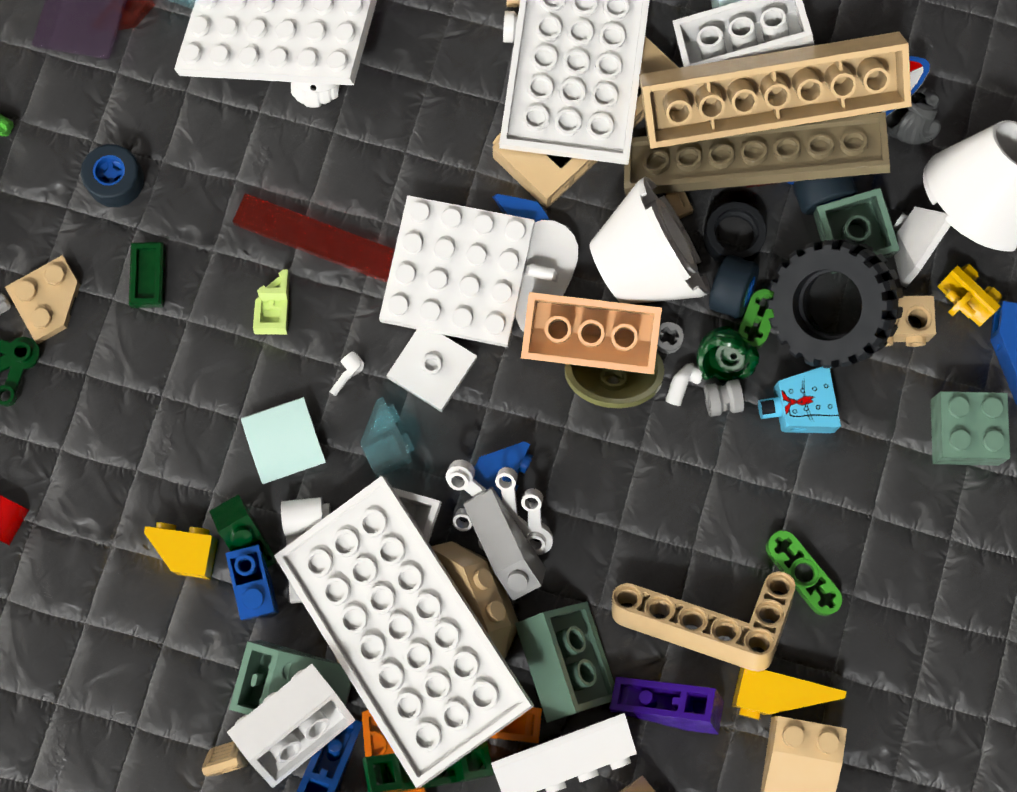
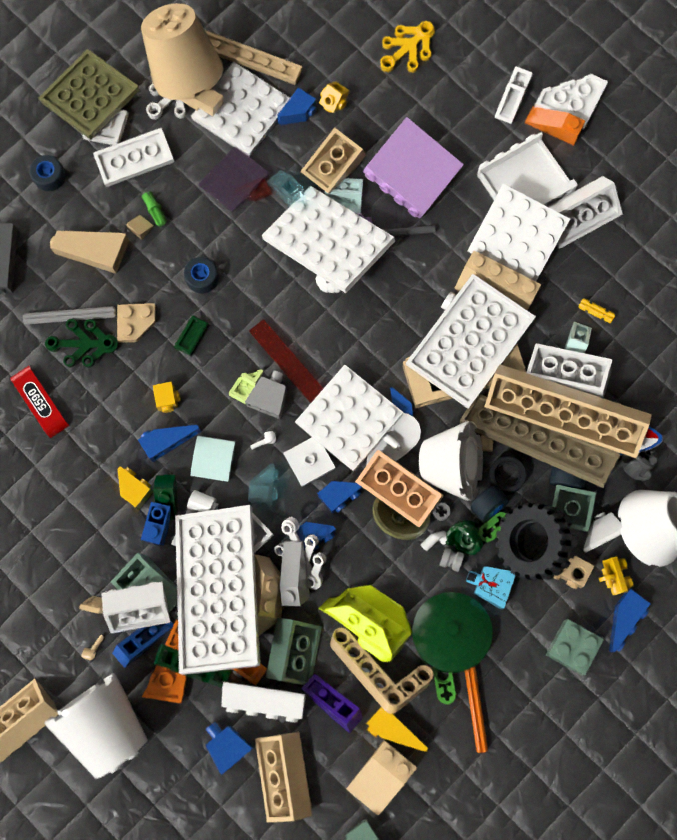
camera: 35 degrees right, 0 degrees up
(159, 385) = (166, 397): none -> yellow brick
(192, 453) = (162, 441): none -> blue slope
(316, 302) = (268, 395): none -> light grey torso
(502, 392) = (338, 493): none -> blue slope
(656, 545) = (373, 618): none -> neon yellow slope
(784, 504) = (452, 632): none -> dark green dish
(872, 587) = (476, 710): none -> orange axle

